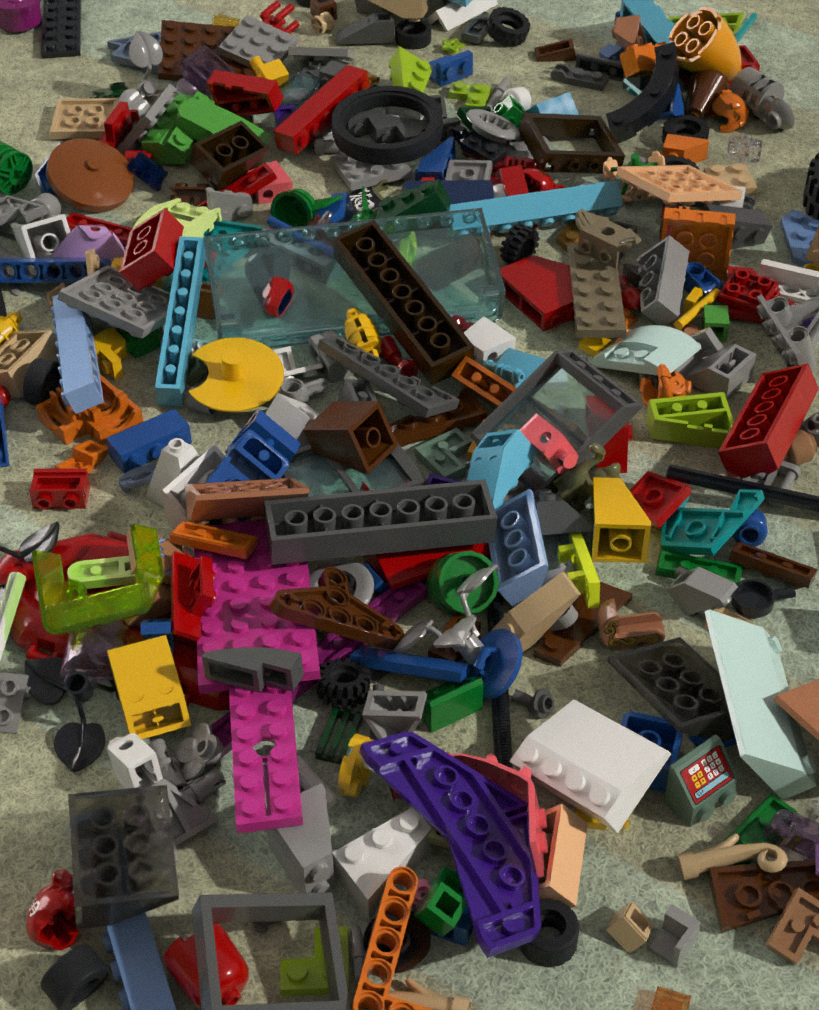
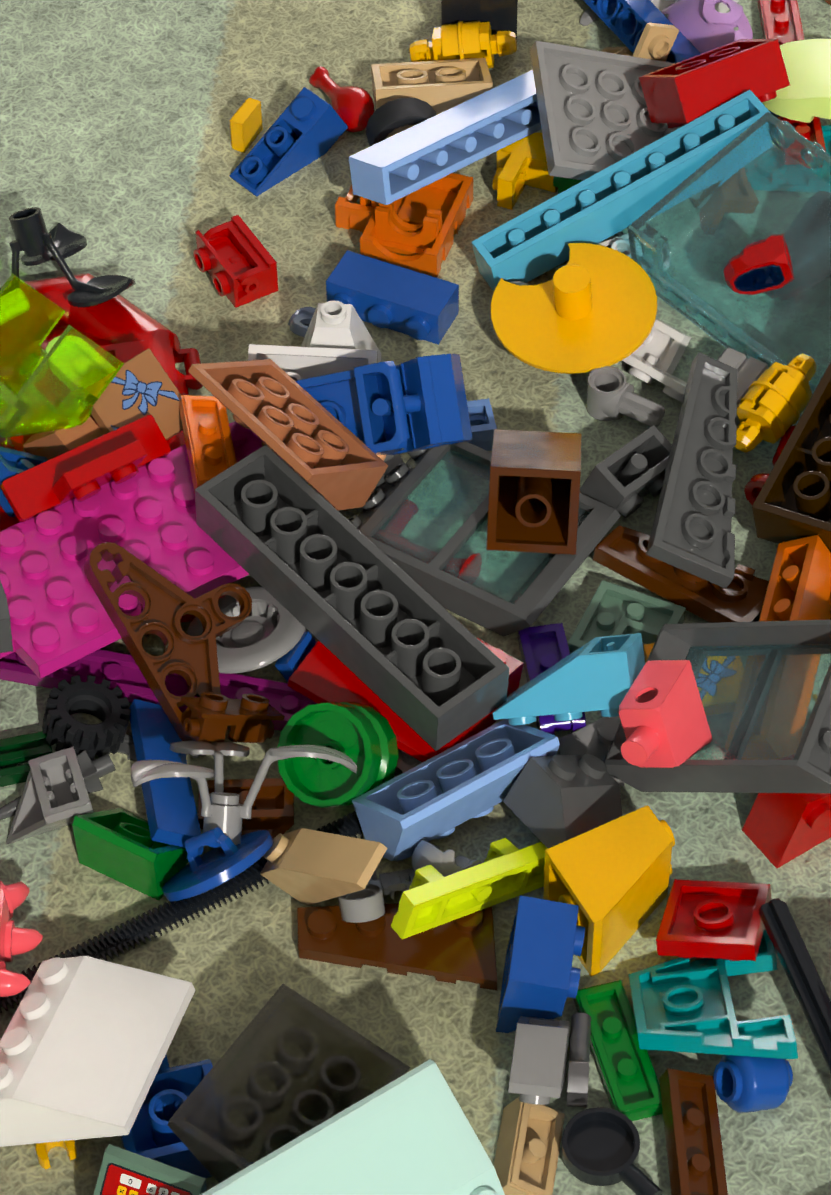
camera: 60 degrees right, 5 degrees up
(85, 456) = (306, 258): orange slope -> none
(292, 416) = (558, 405): white slope -> none
(401, 616) = (247, 716): none -> reddish brown hinge
(539, 704) = (201, 955): dark grey plate -> none
(577, 481) = (695, 832): olive animal -> none
(628, 630) = (409, 1001): nougat animal -> none
(644, 568) = (539, 962): none -> blue slope

